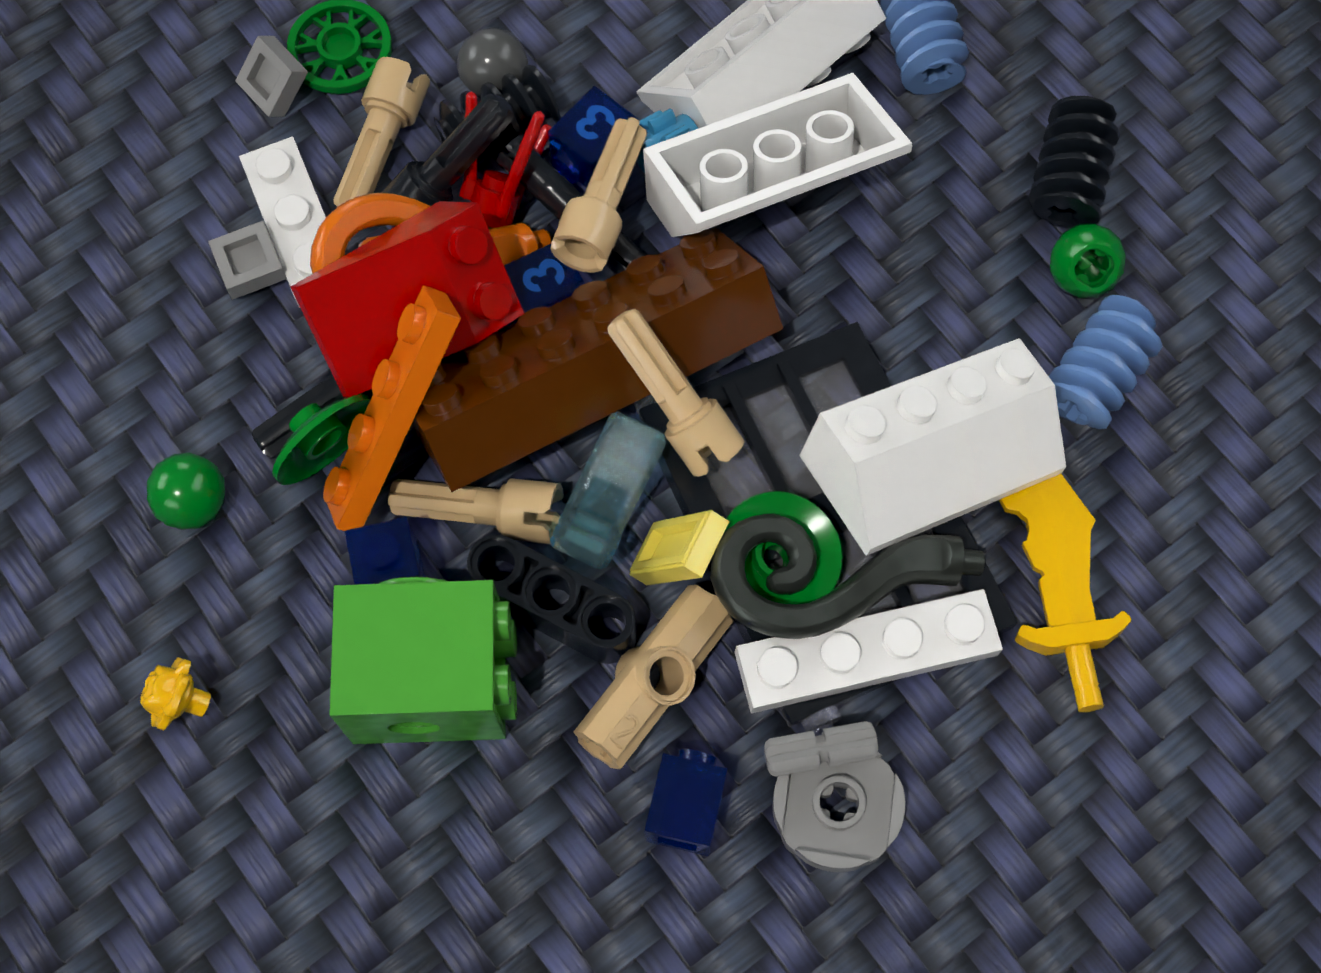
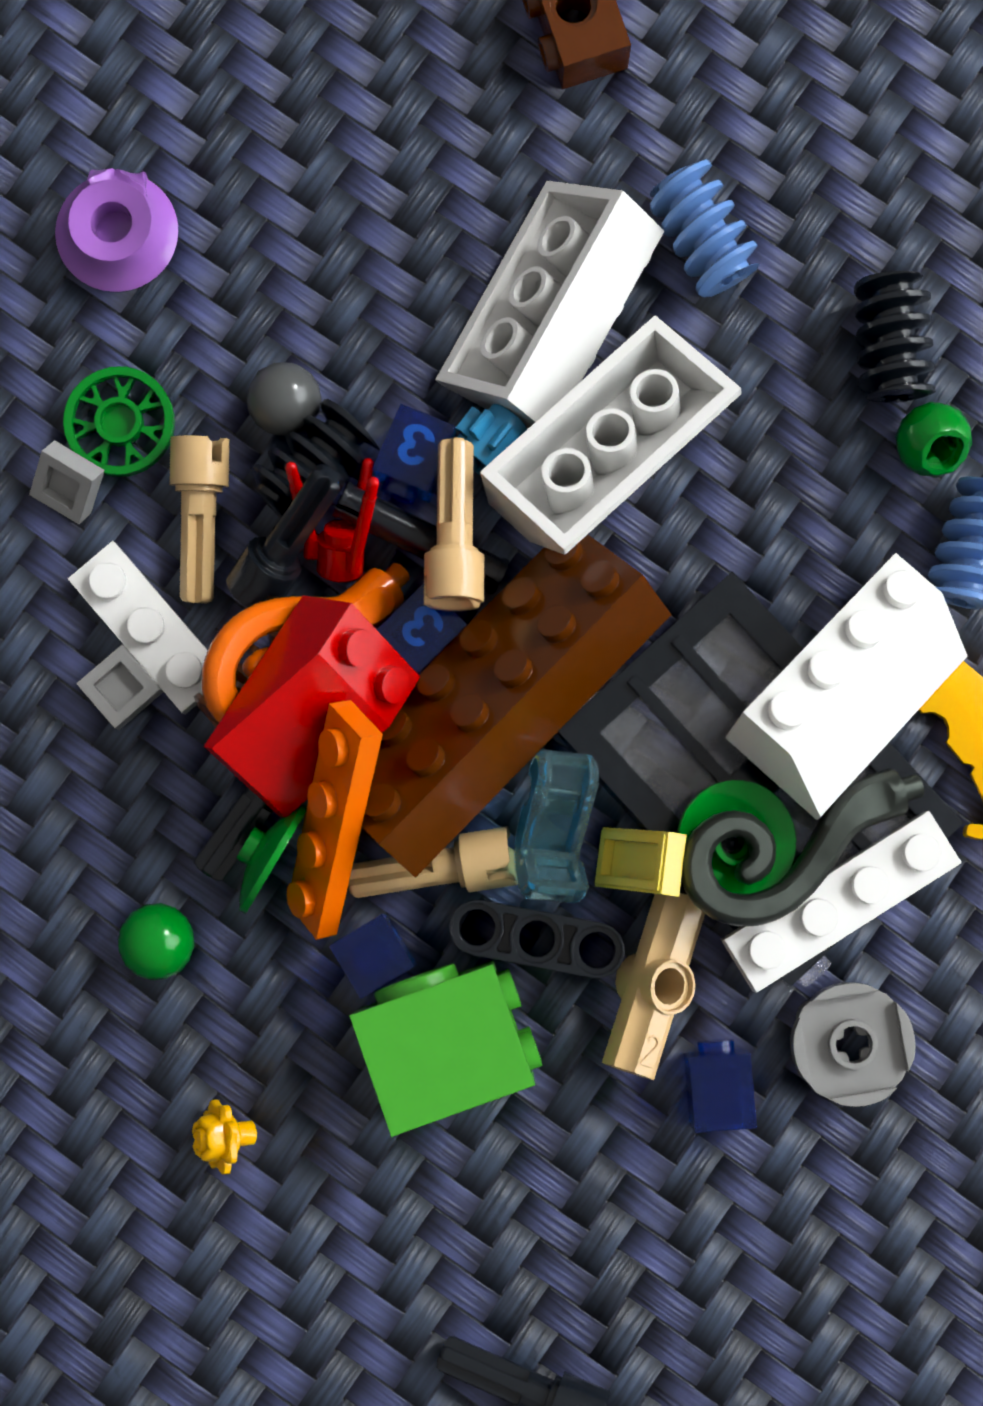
camera: 15 degrees left, 15 degrees up
(695, 423) = (619, 741): tan piece -> none
(835, 746) = (815, 1012): light grey piece -> none

